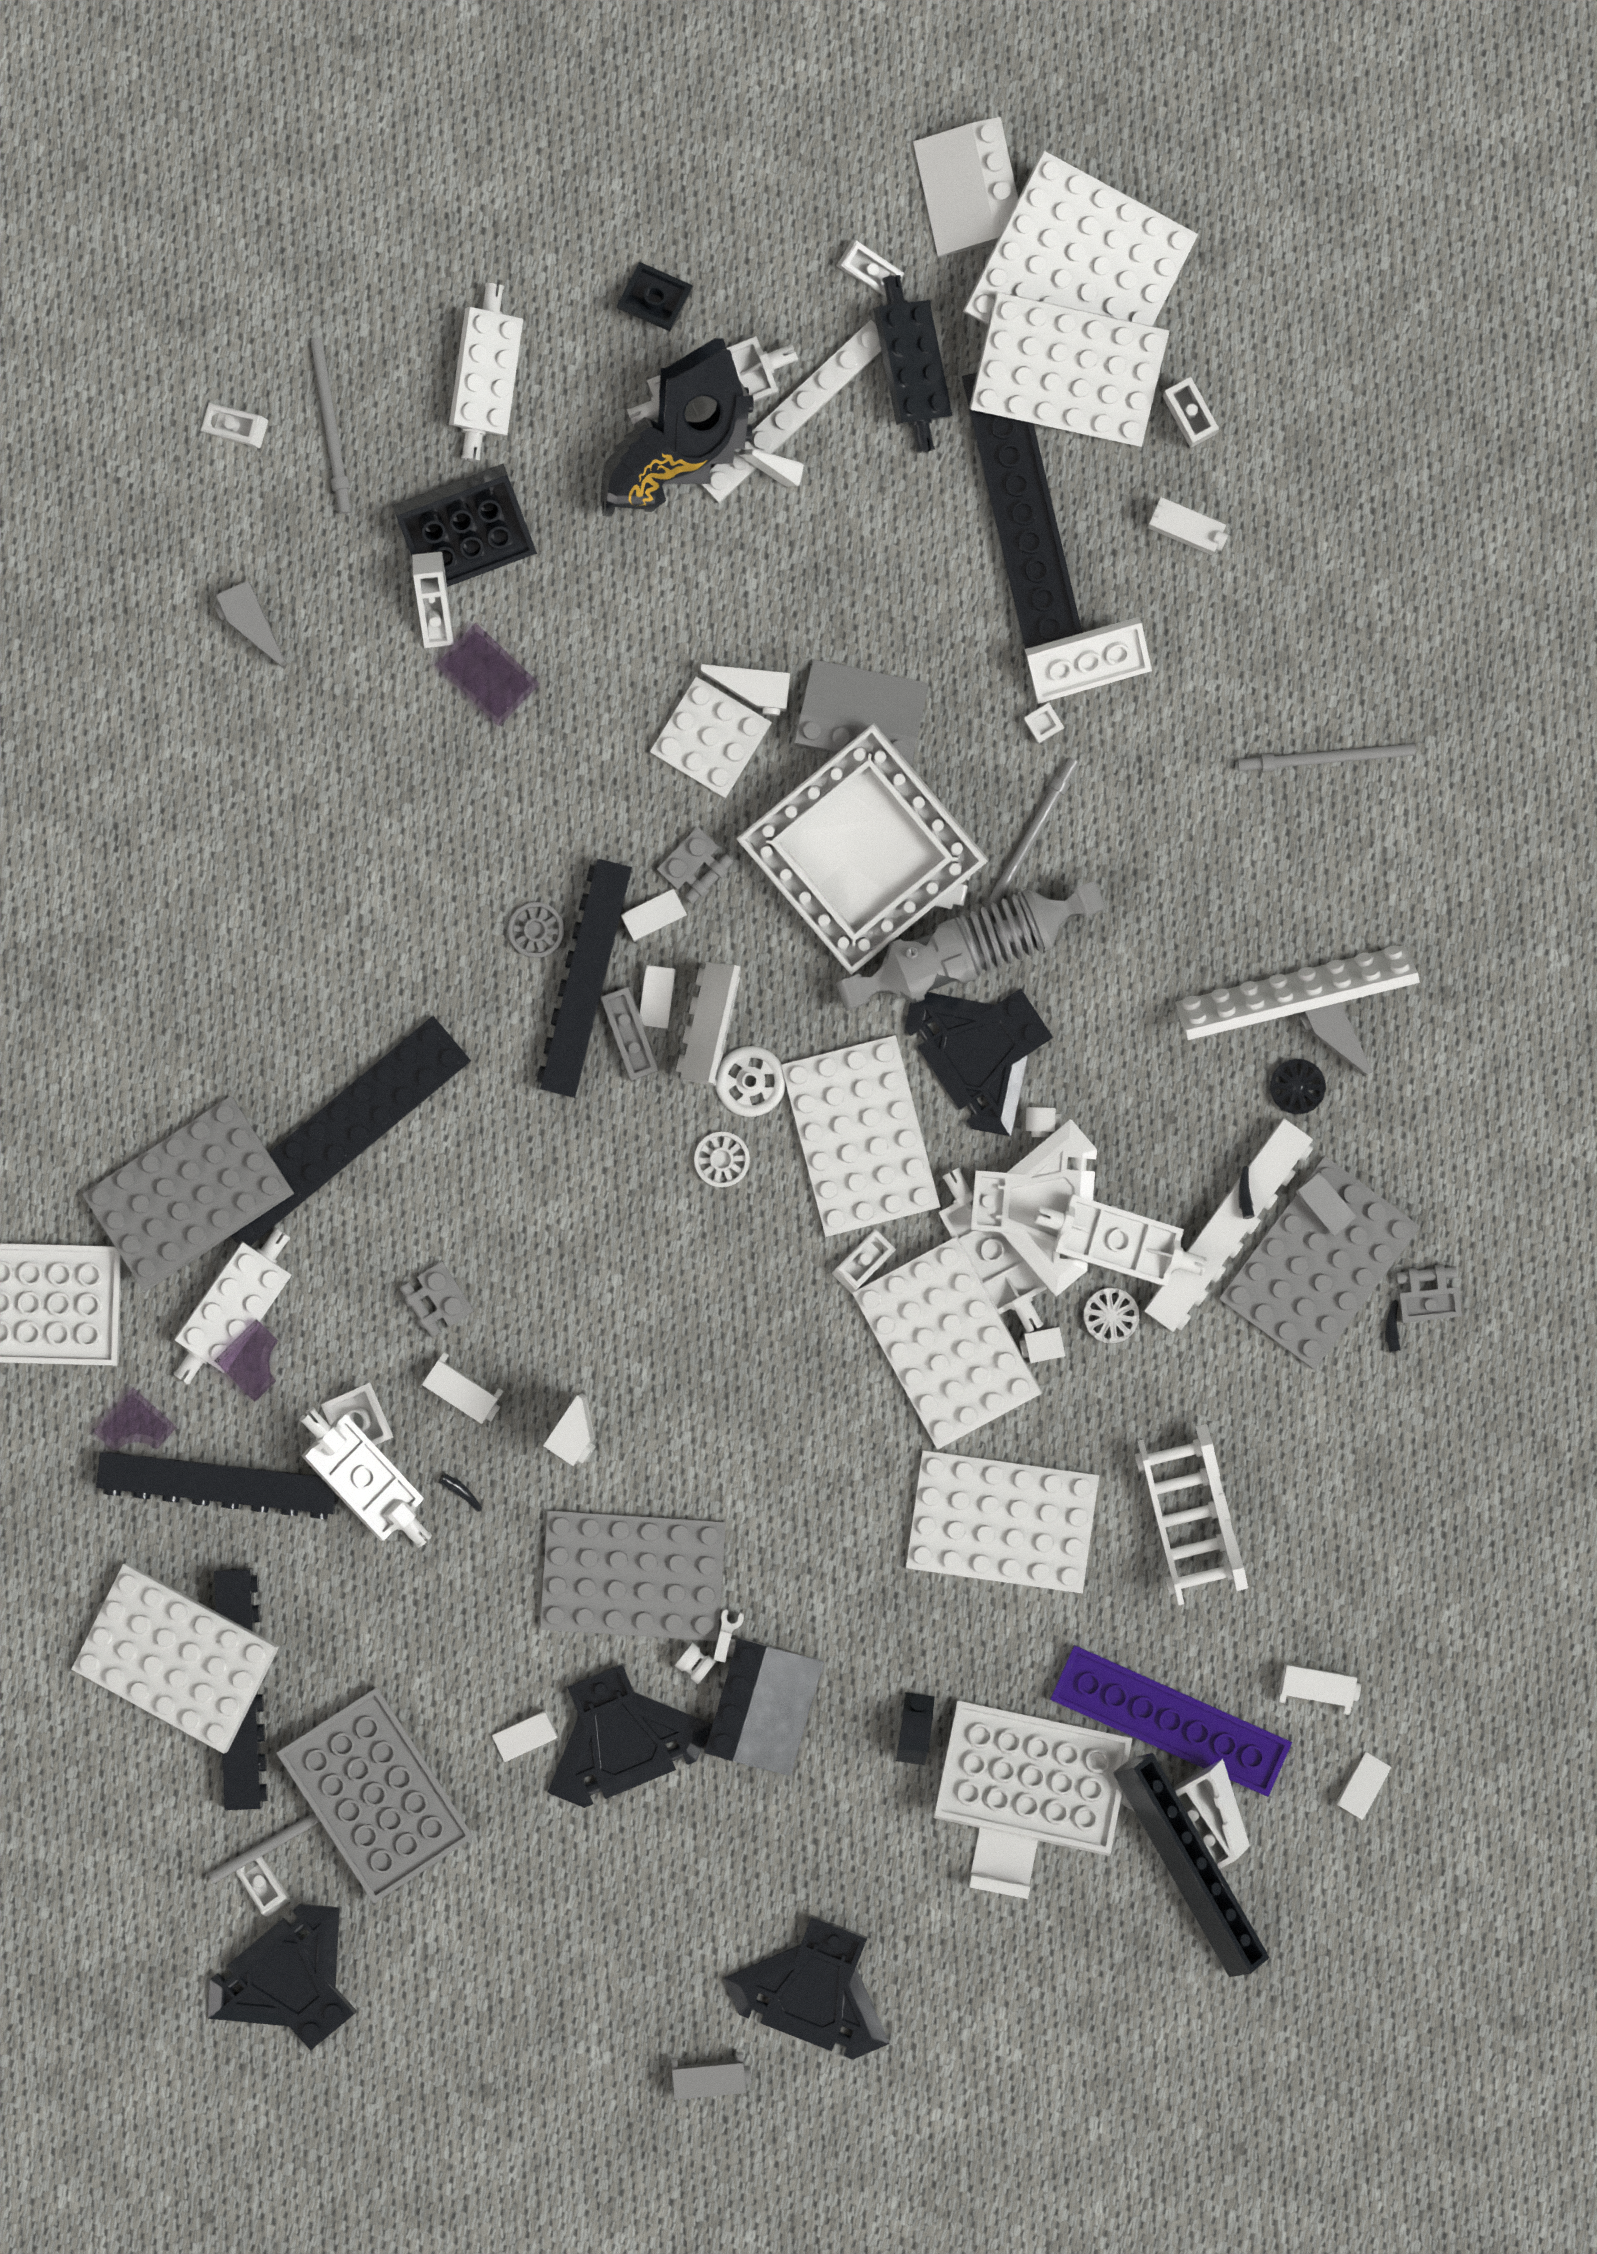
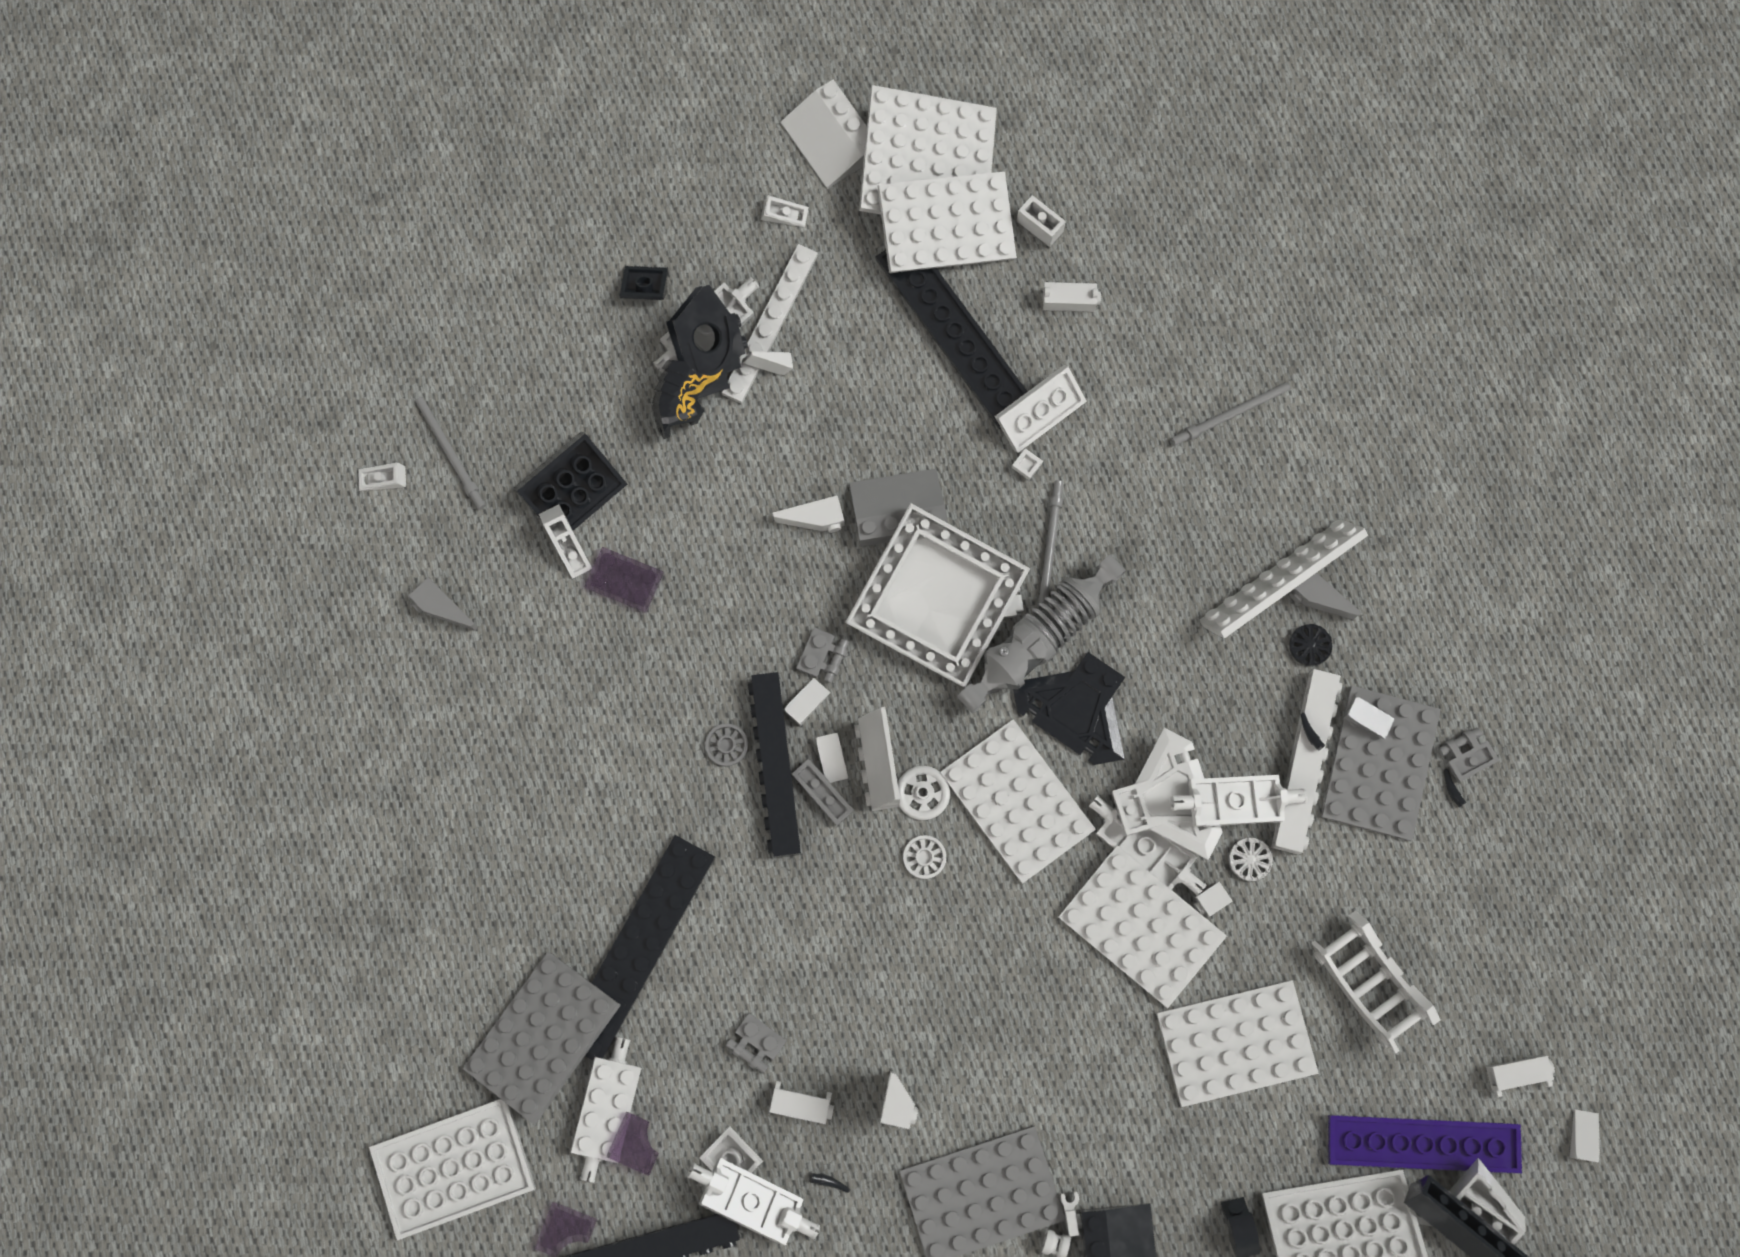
camera: 25 degrees left, 10 degrees down
(485, 372) = (545, 376): white plate -> none
(710, 737) = (798, 563): white plate -> none
(863, 1262) = (1056, 891): white slope -> none
(912, 362) = (838, 260): black plate -> none
(1042, 1121) = (1143, 738): white plate -> none

